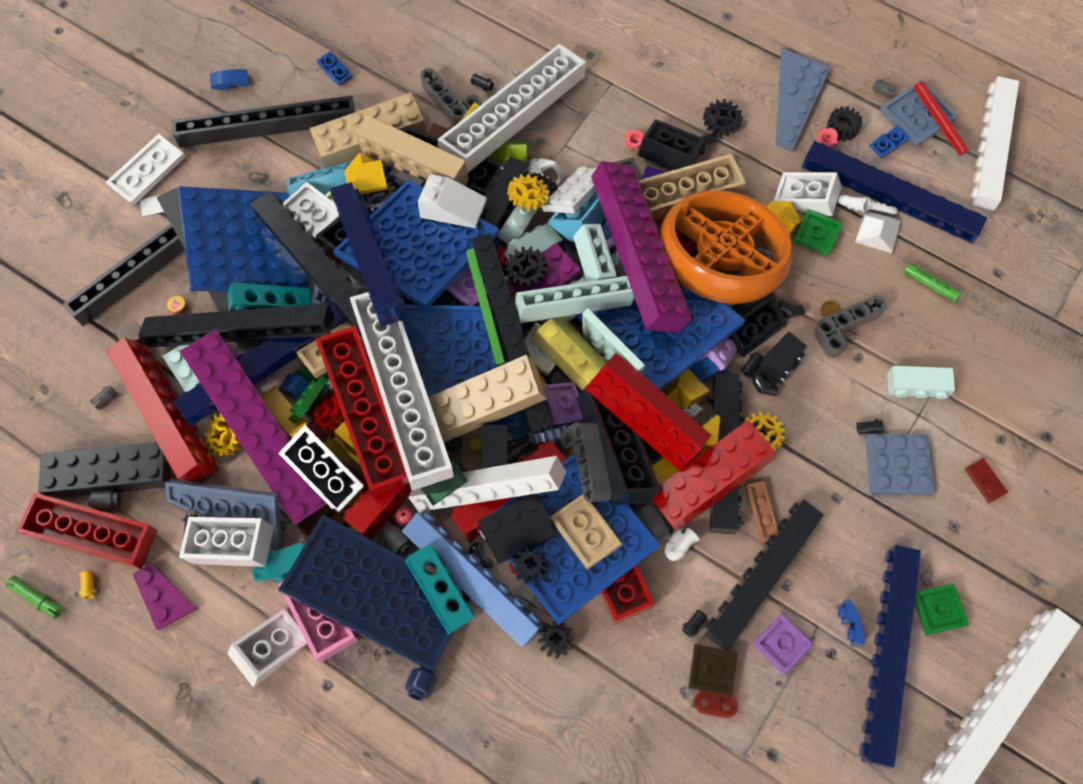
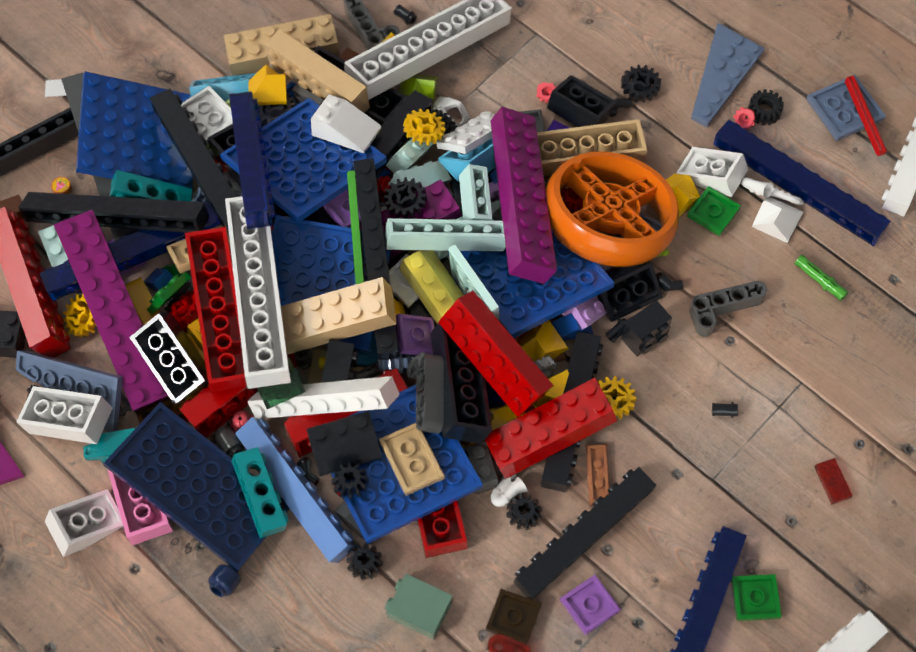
camera: 10 degrees right, 5 degrees down
(145, 169) = (57, 52): white plate -> none
(260, 121) = (177, 21): black brick -> none
(618, 675) = (418, 606): none -> sand green brick
(695, 622) = (504, 570): black pin -> none
(708, 566) = (530, 516): none -> black gear
(762, 387) = (624, 354): black arm -> none
(829, 308) = (709, 286): pearl gold piece -> none
(850, 616) = (662, 590): blue slope -> none
(883, 88) = (814, 76): dark grey pin -> none
(889, 142) = (811, 132): blue slope -> none
(899, 464) = (747, 451): sand blue plate -> none
(920, 382) = (786, 373): light aqua brick -> none

